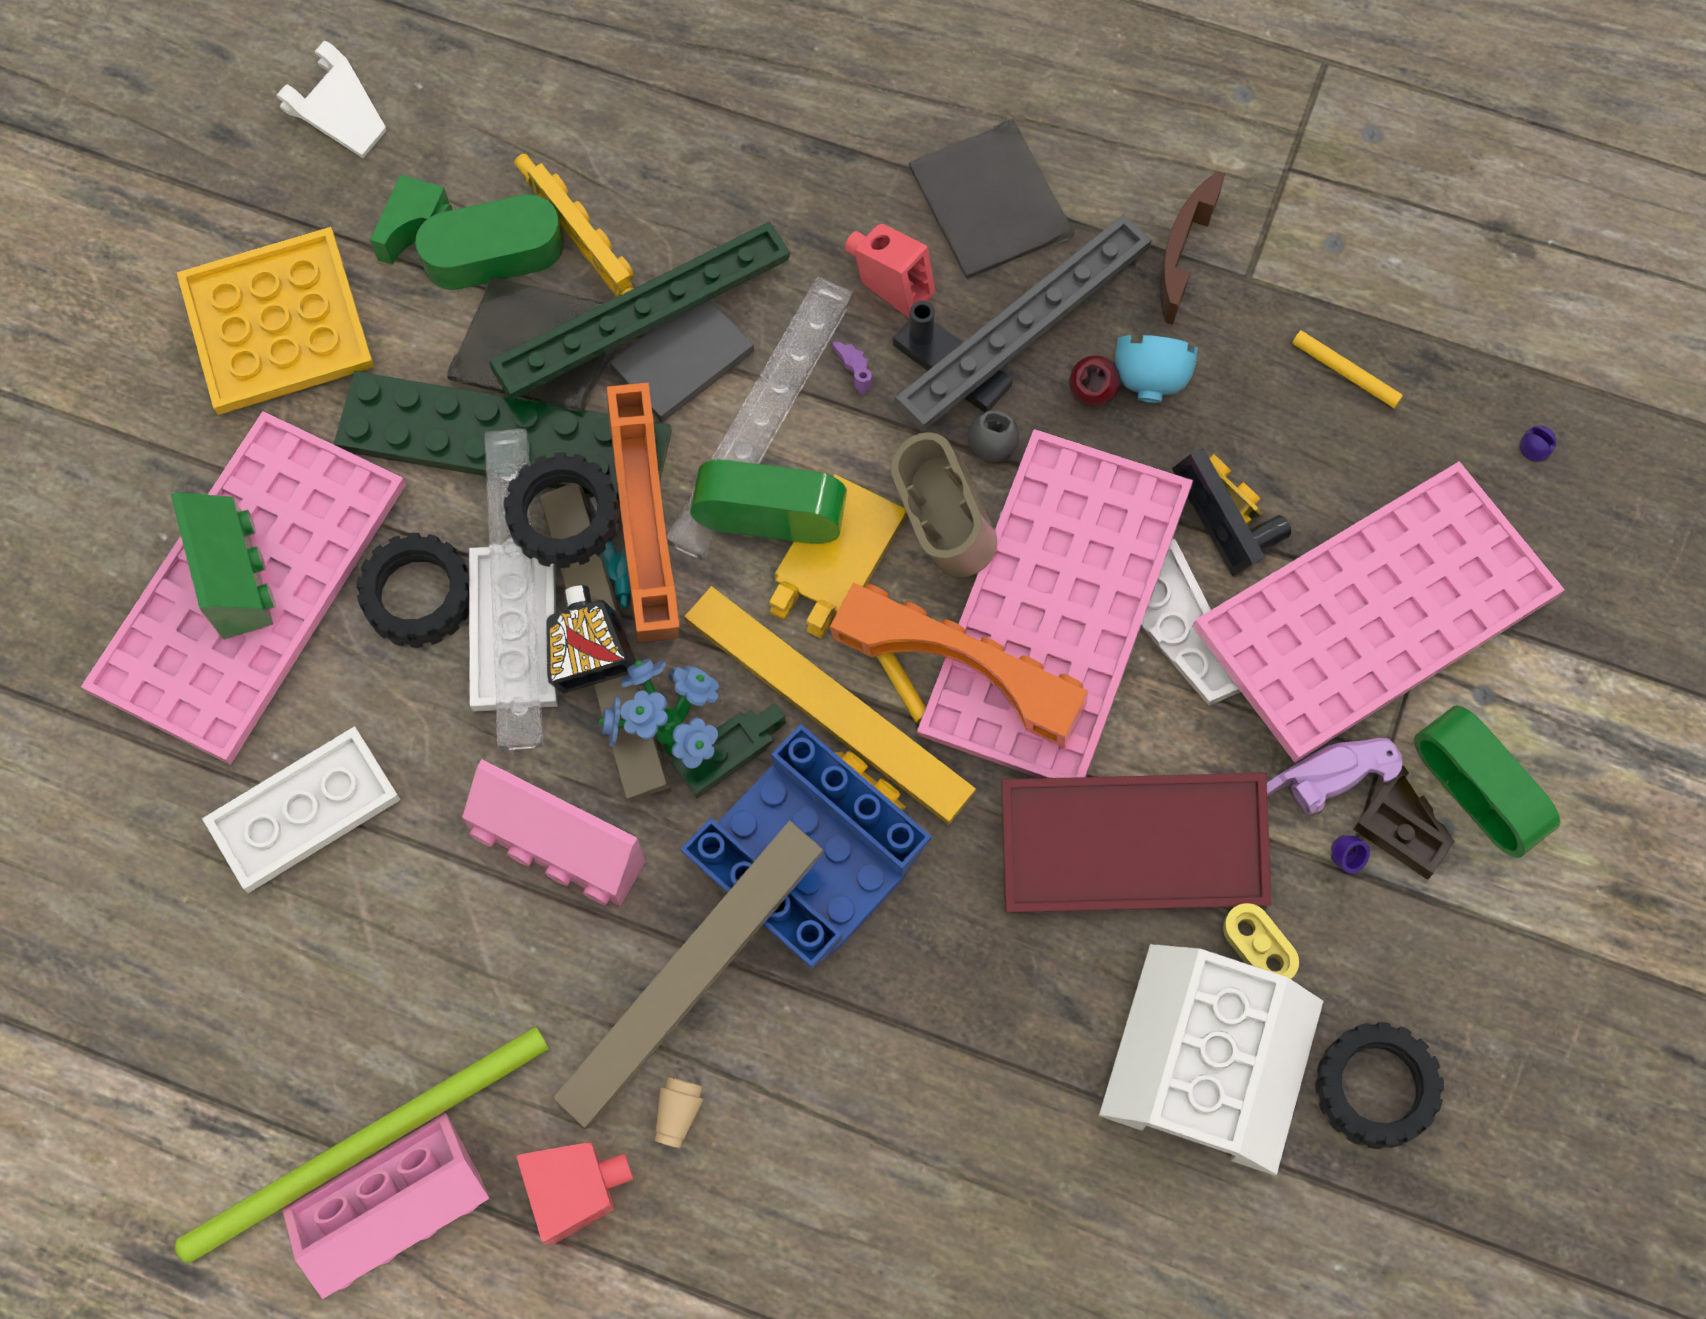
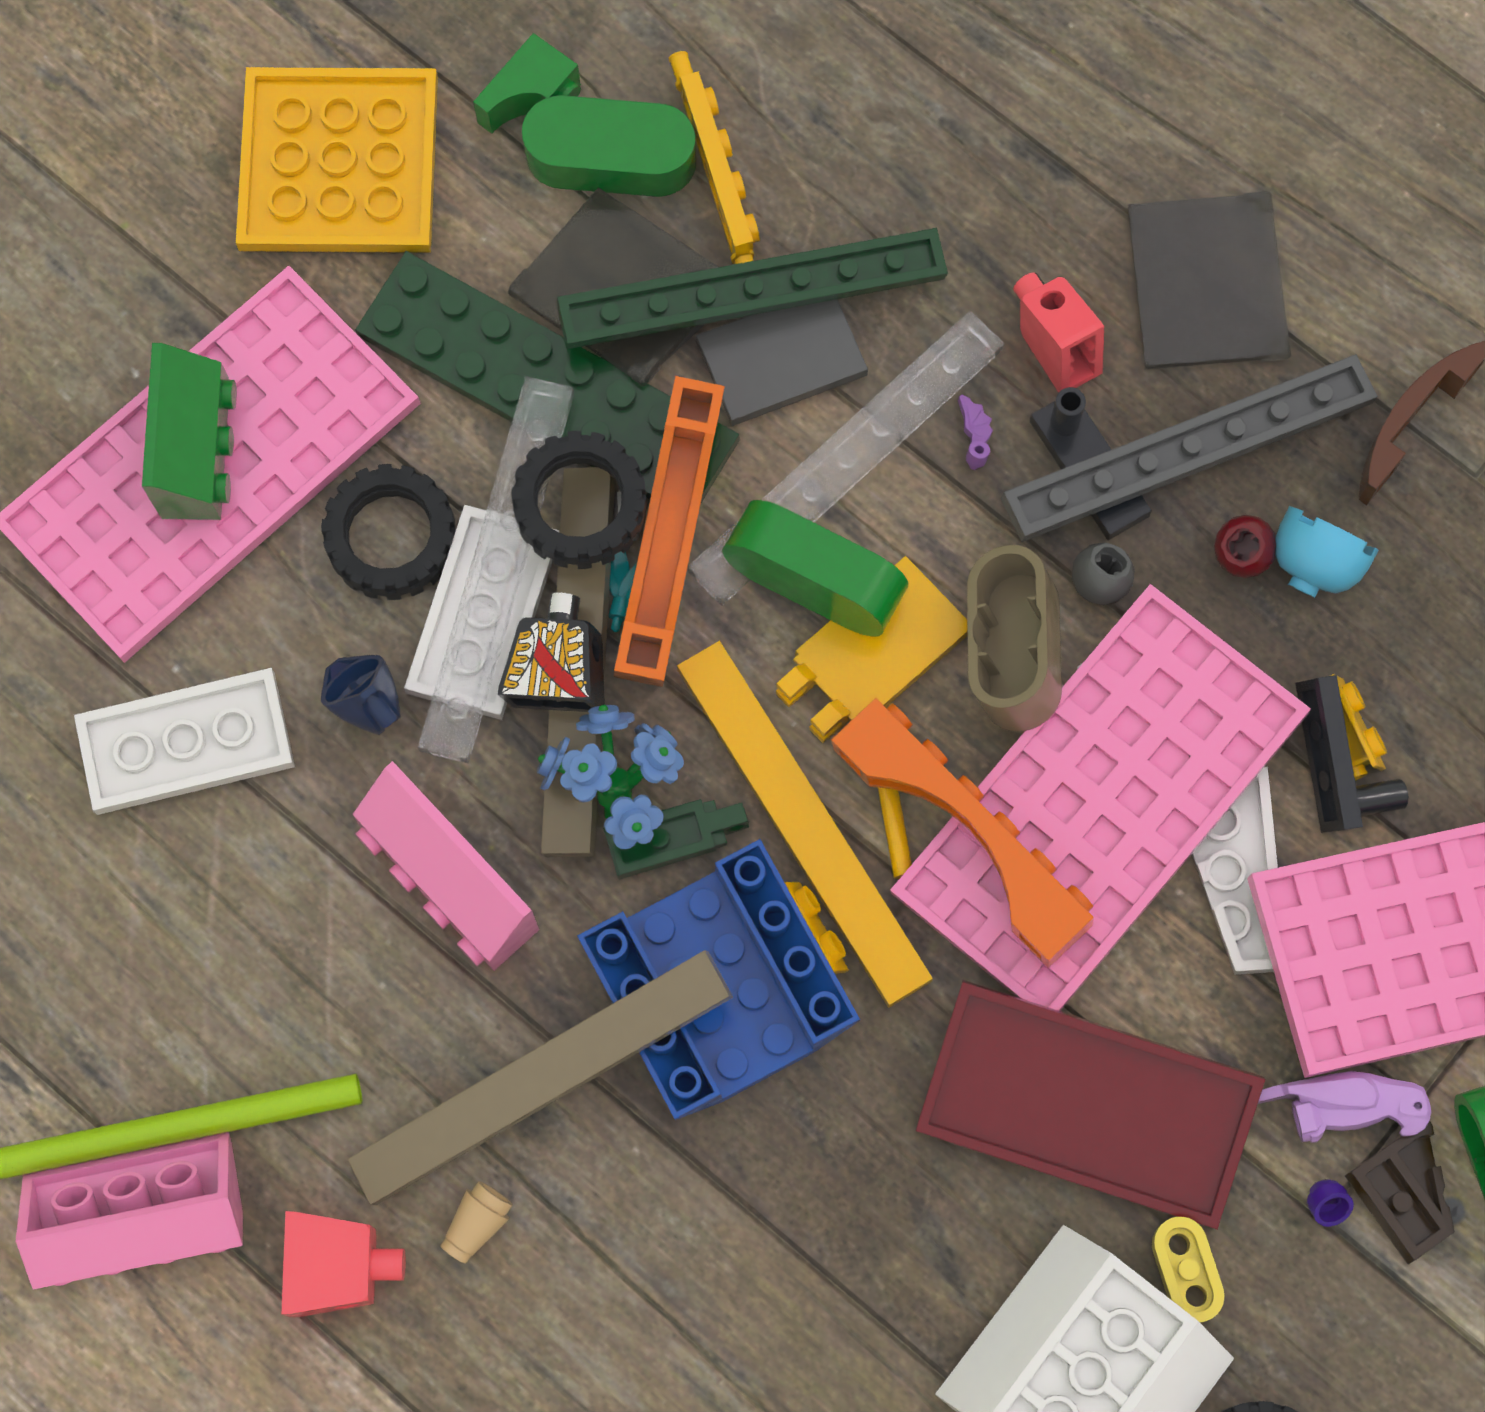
camera: 20 degrees right, 5 degrees up
(437, 720) = (361, 692): none -> dark blue hat

